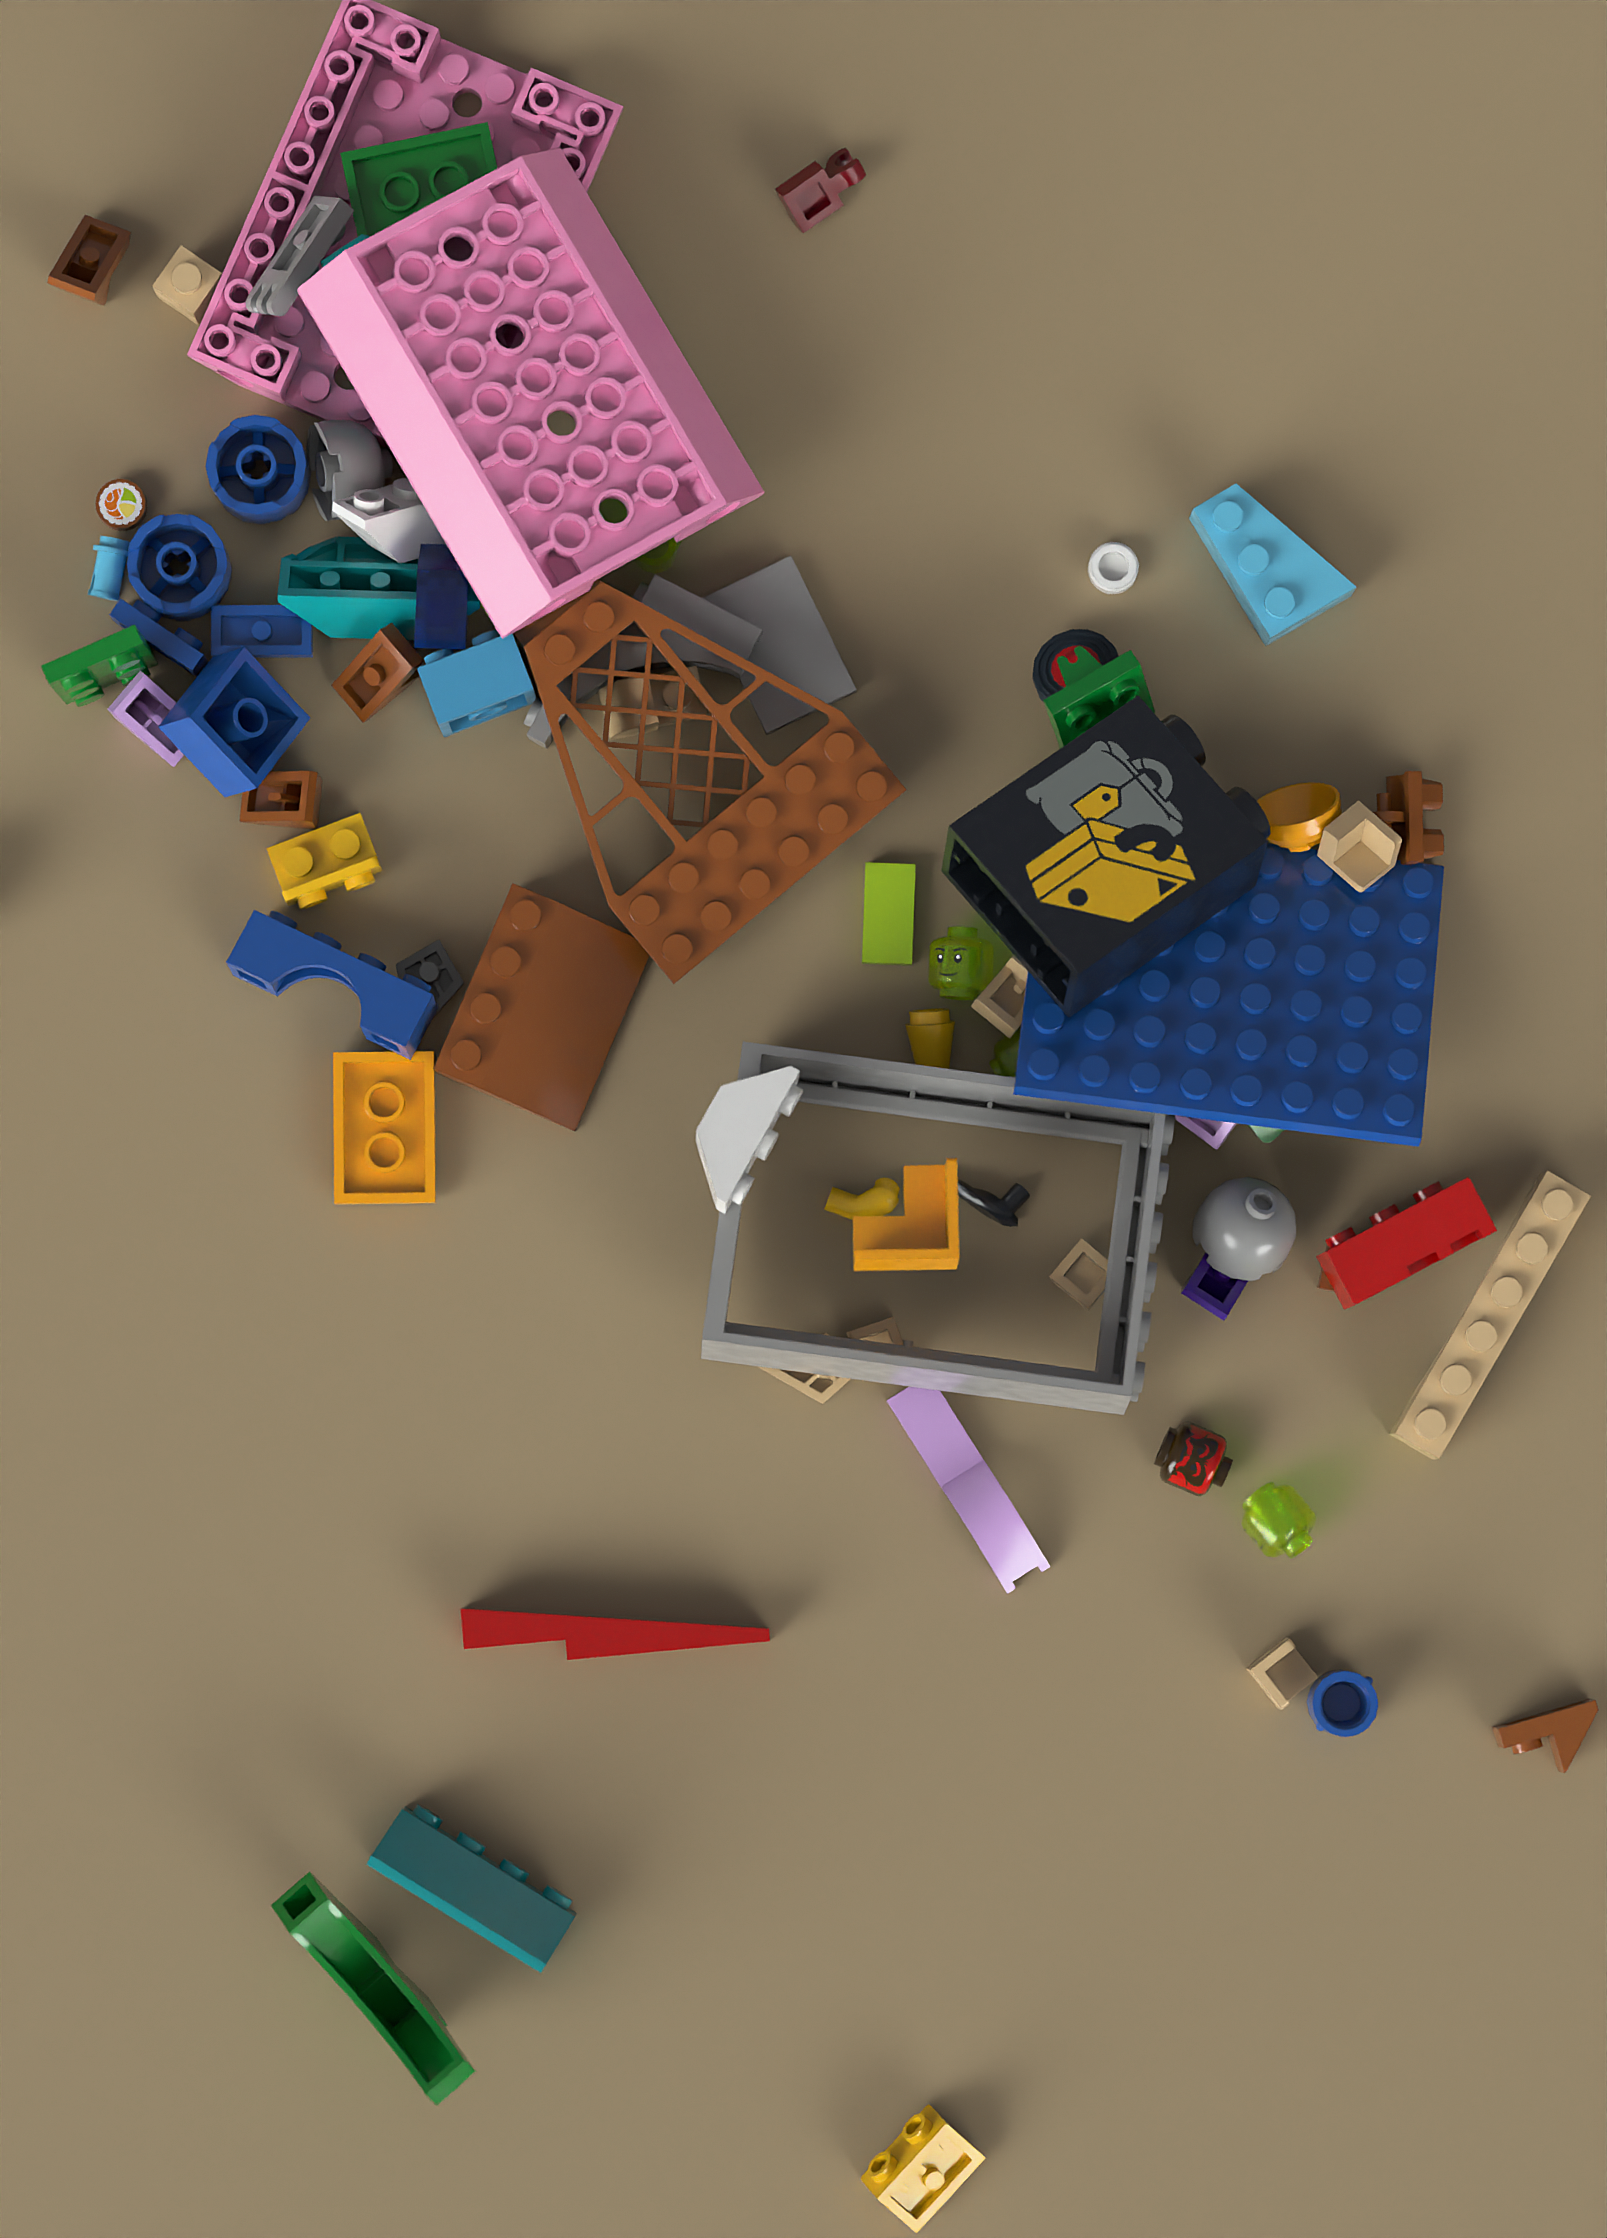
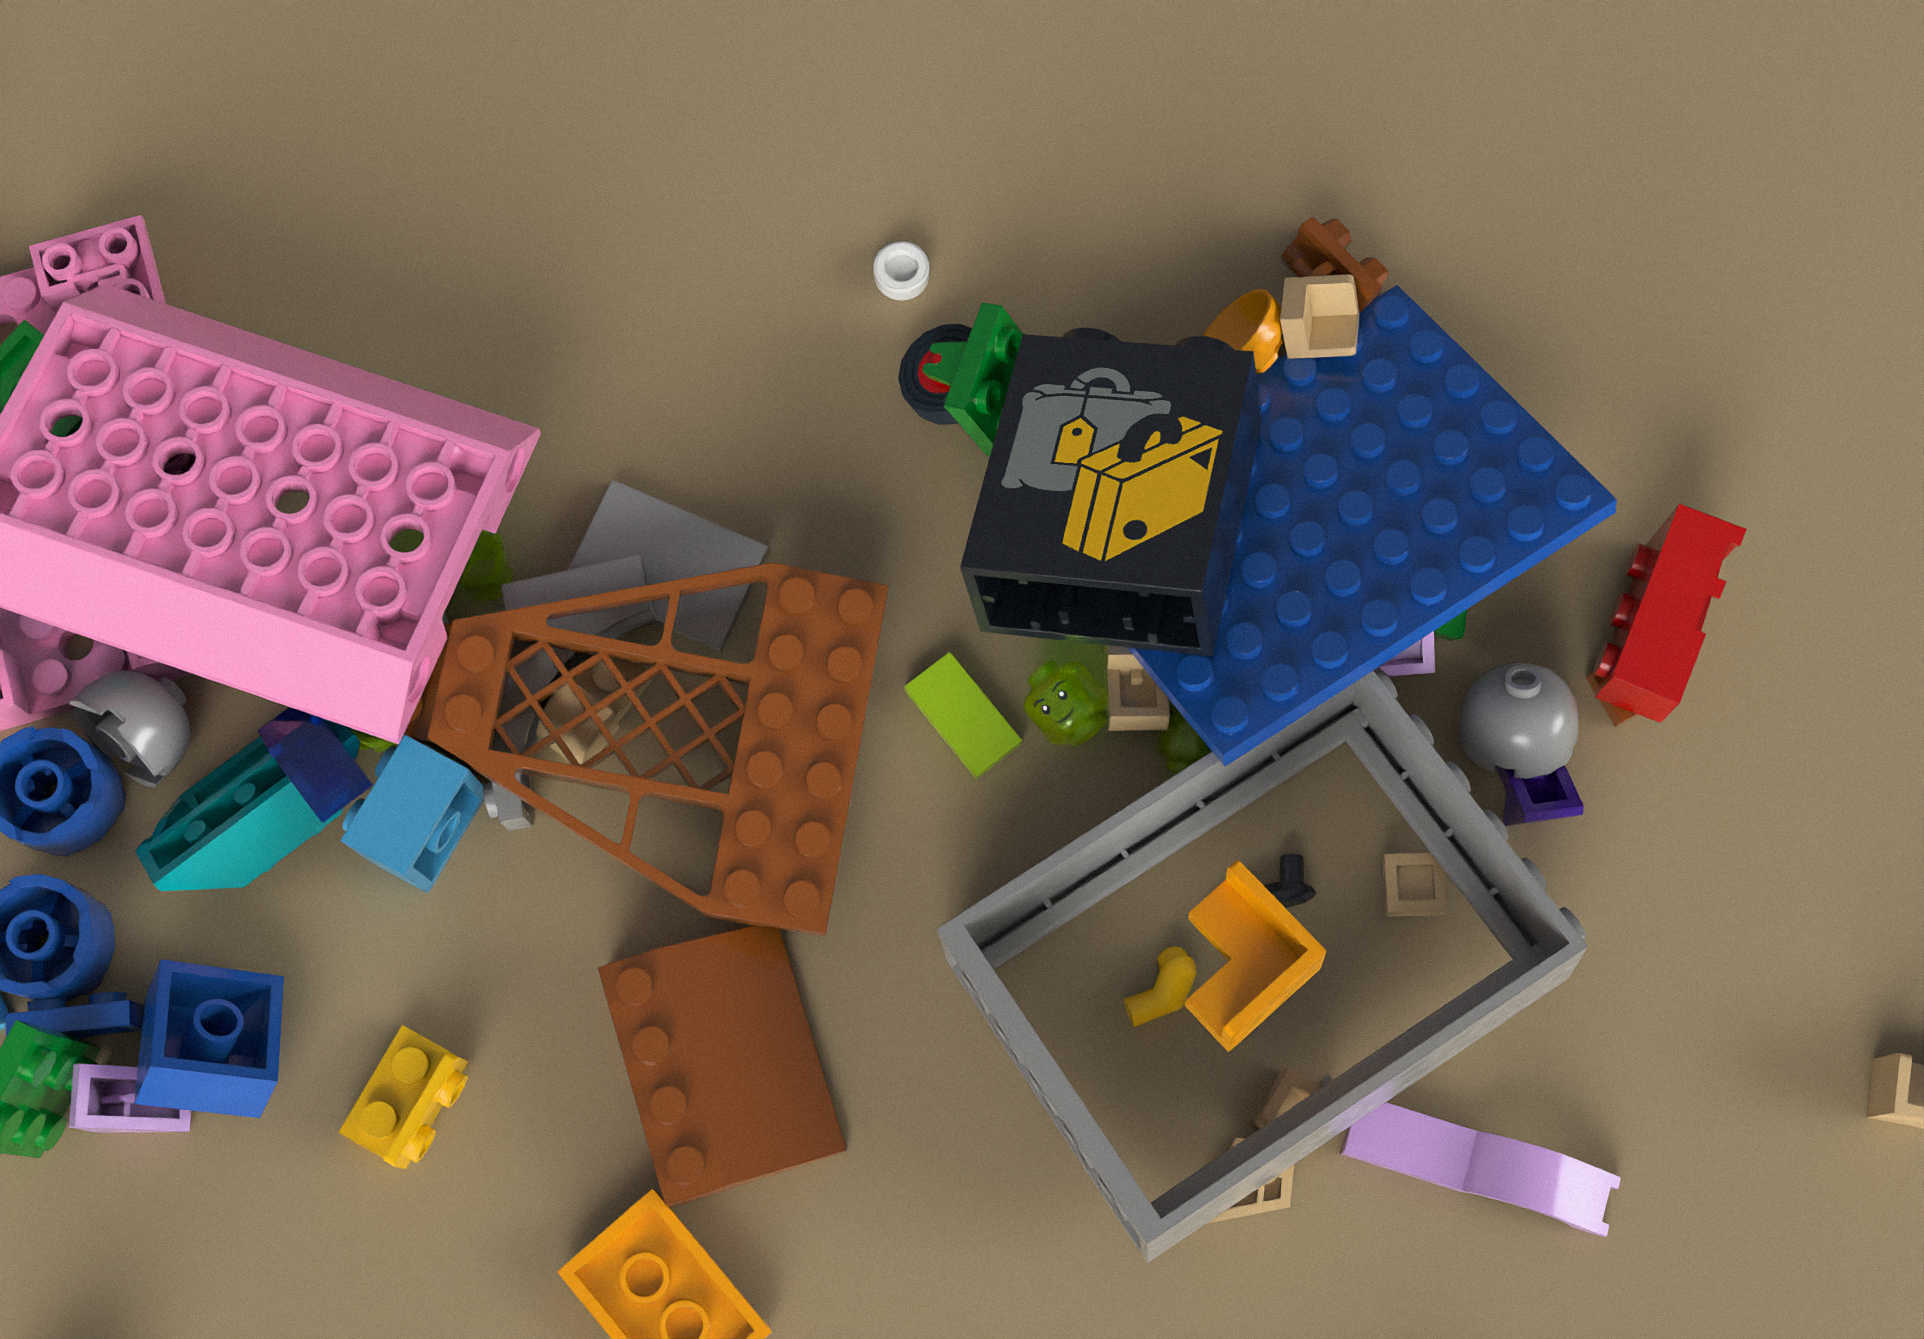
camera: 40 degrees left, 10 degrees down
(262, 630) = (174, 932): blue plate -> none
(278, 956) = (428, 1224): blue arch -> none
(284, 800) = (319, 1072): dark orange slope -> none
(378, 673) = (316, 881): dark orange slope -> none
(390, 520) = (211, 731): white slope -> none
(435, 969) = (595, 1132): dark grey piece -> none
(740, 1130) = (1009, 1011): white slope -> none
(815, 190) = (375, 165): dark red plate -> none
(931, 1036) = (1094, 788): yellow cone -> none
(1193, 1458) = (1656, 966): dark brown head -> none
(1267, 564) = (1028, 158): medium azure wedge -> none
(1278, 1520) = (1781, 956): clear neon green head -> none
(1490, 1315) = (1814, 706): tan arch -> none

